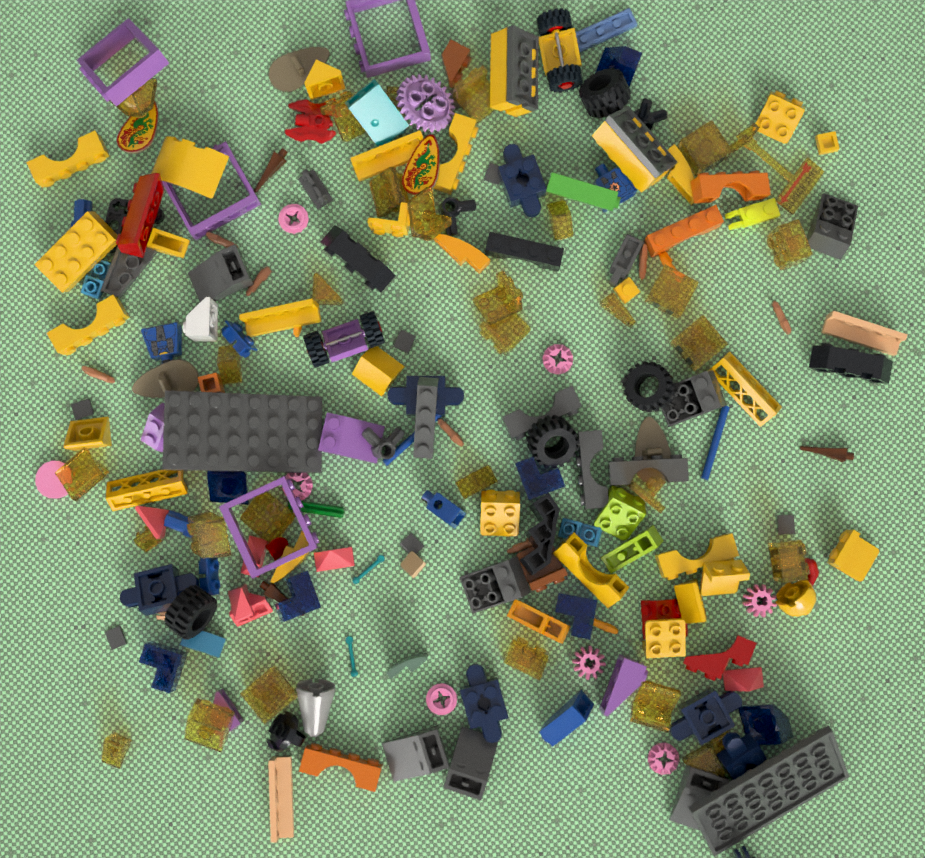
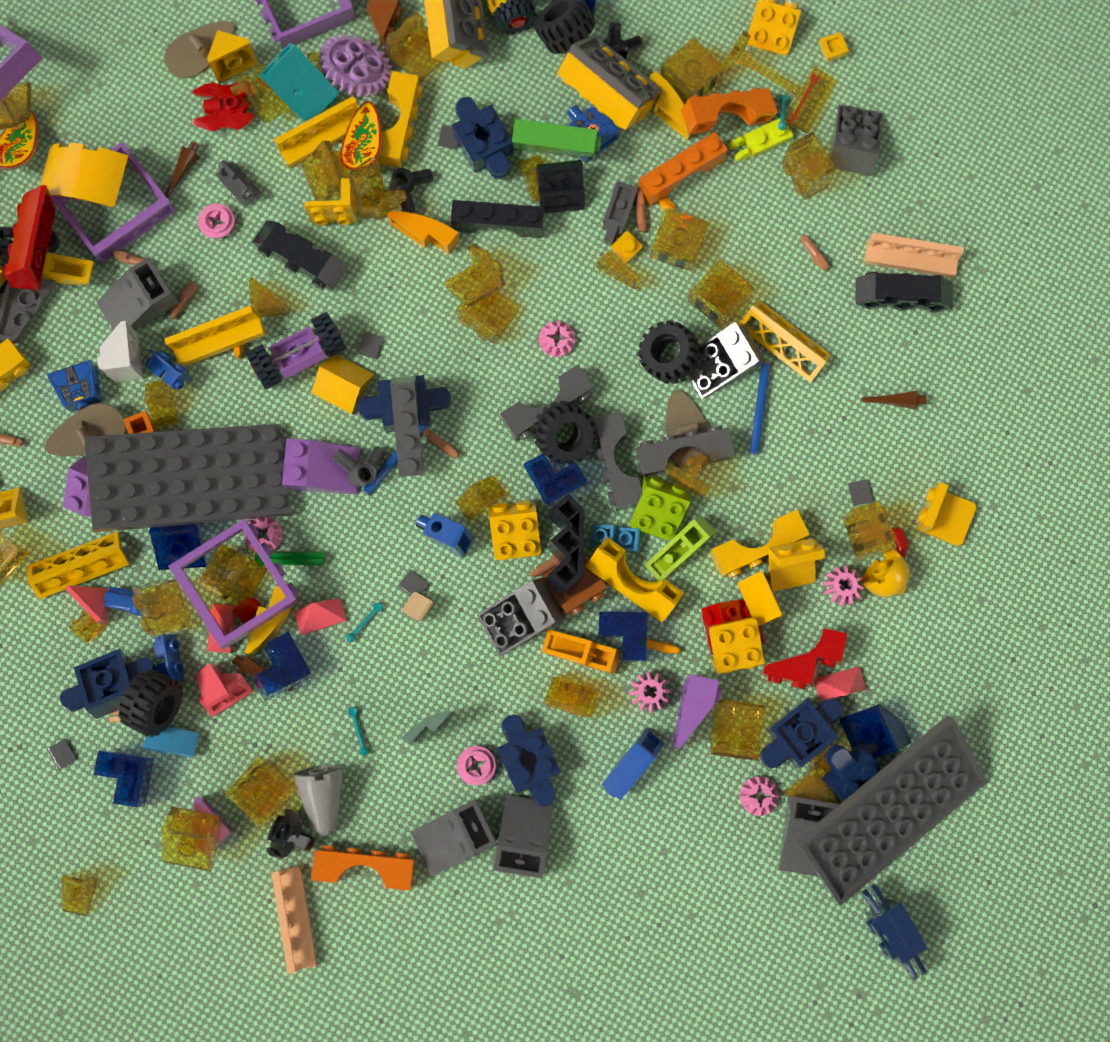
camera: 15 degrees left, 5 degrees down
(580, 231) = (561, 186): none -> black slope
(777, 182) = (783, 100): none -> teal hinge

